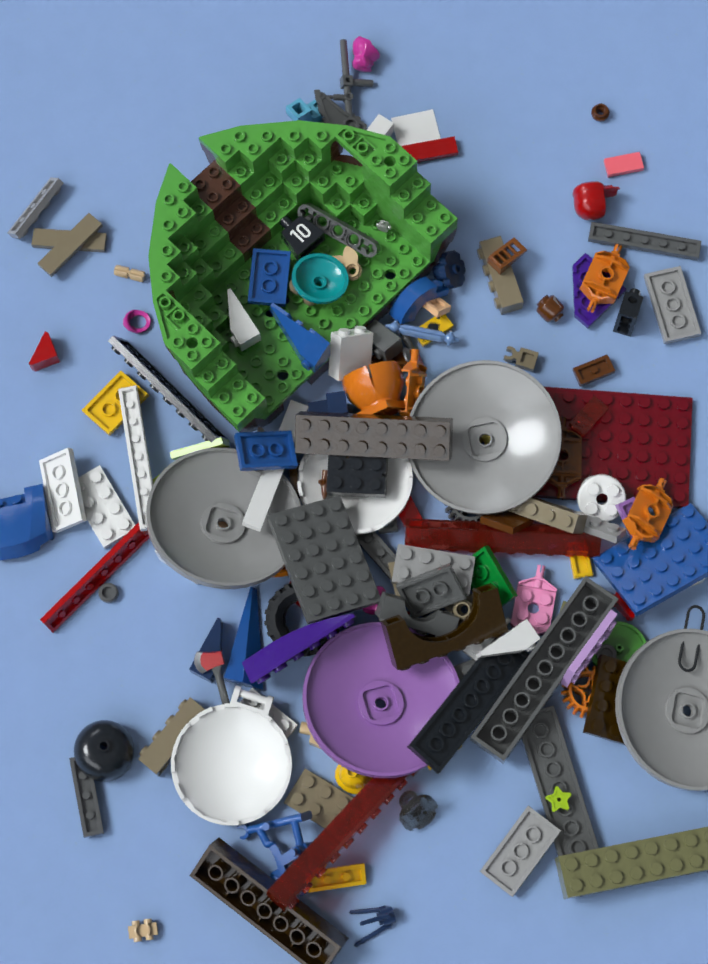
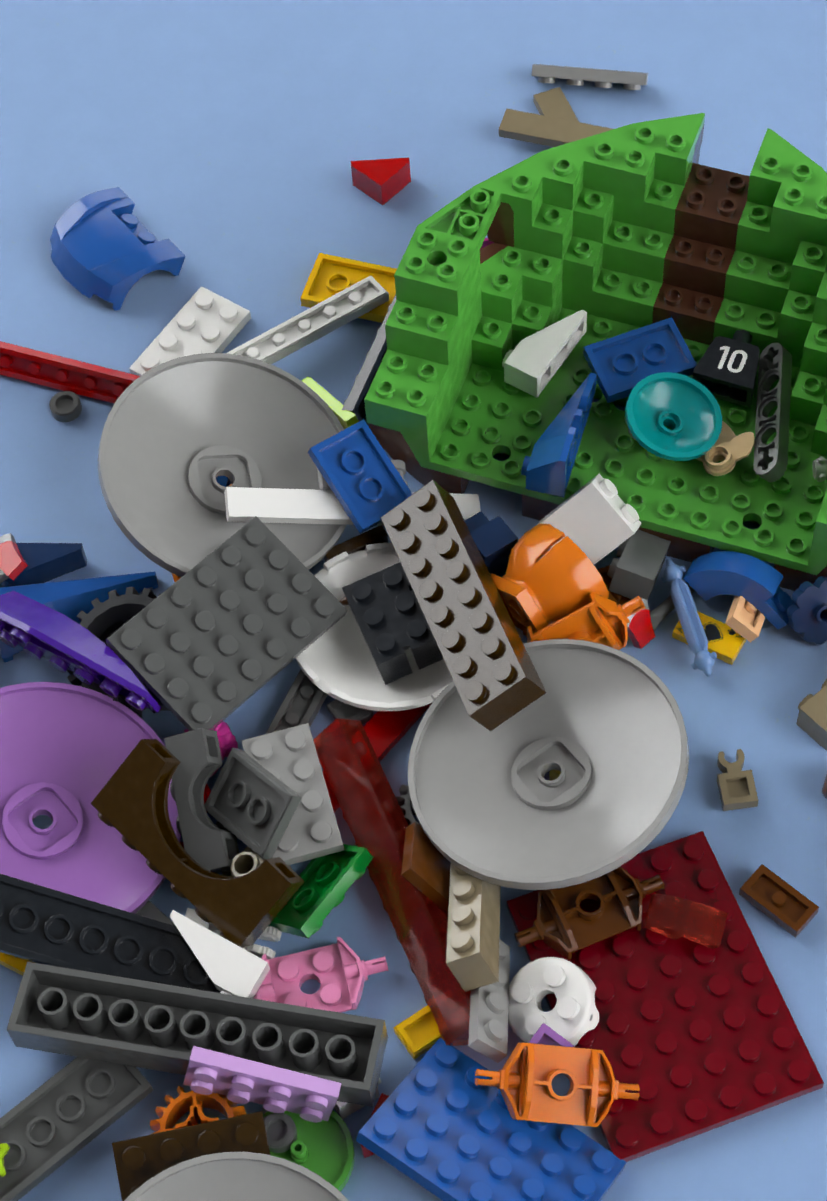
camera: 65 degrees right, 15 degrees down
(62, 490) = (186, 282): white plate -> none

